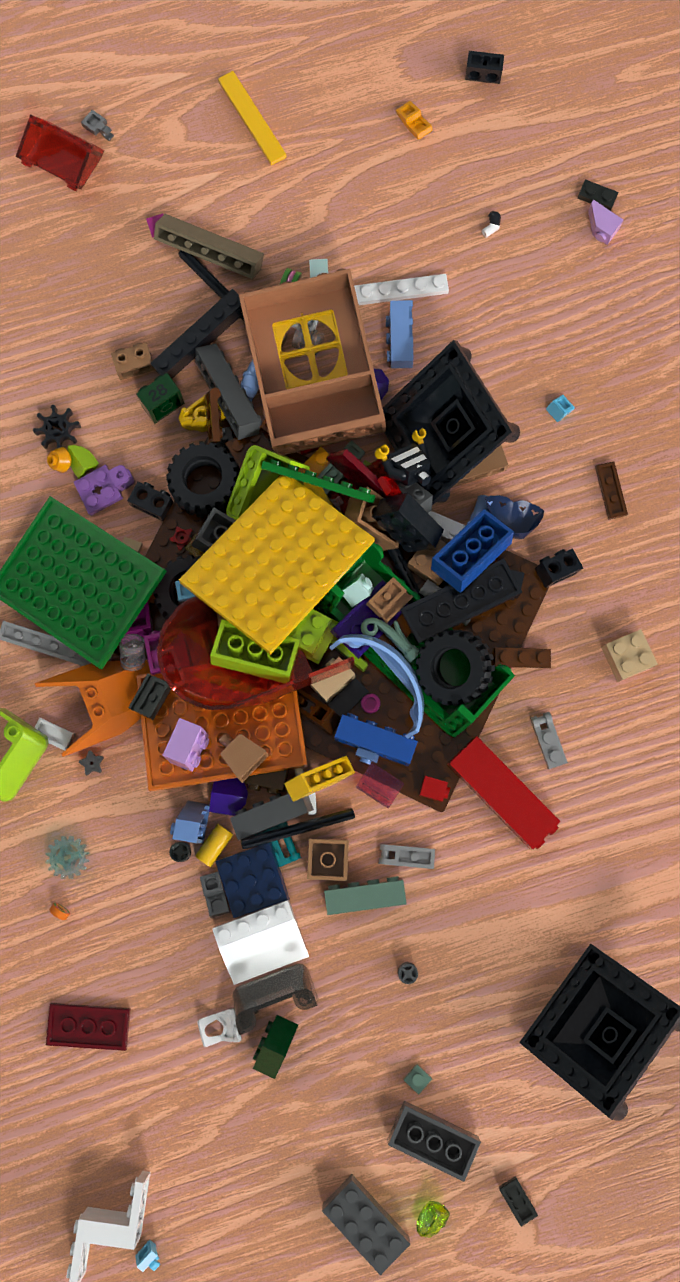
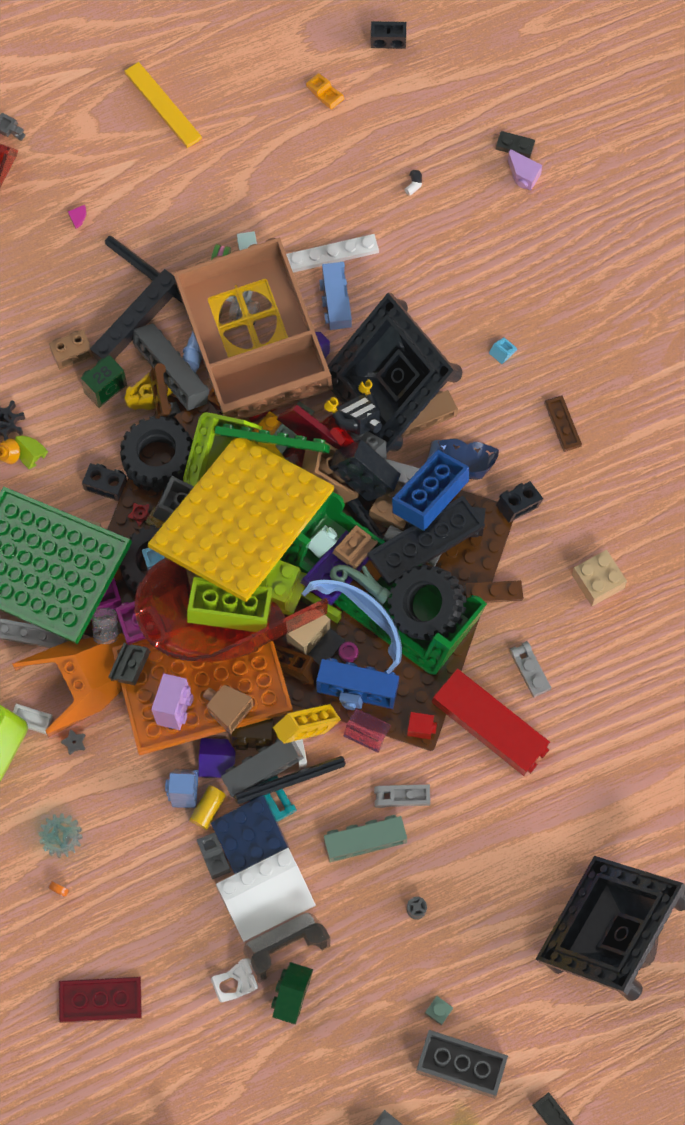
camera: 10 degrees left, 10 degrees down
(112, 483) = (62, 466): medium lavender plate -> none
(176, 852) = (174, 812): pearl dark grey wheel -> none
(208, 246) = (134, 231): dark tan brick -> none
(328, 859) = (324, 805): medium nougat brick -> none

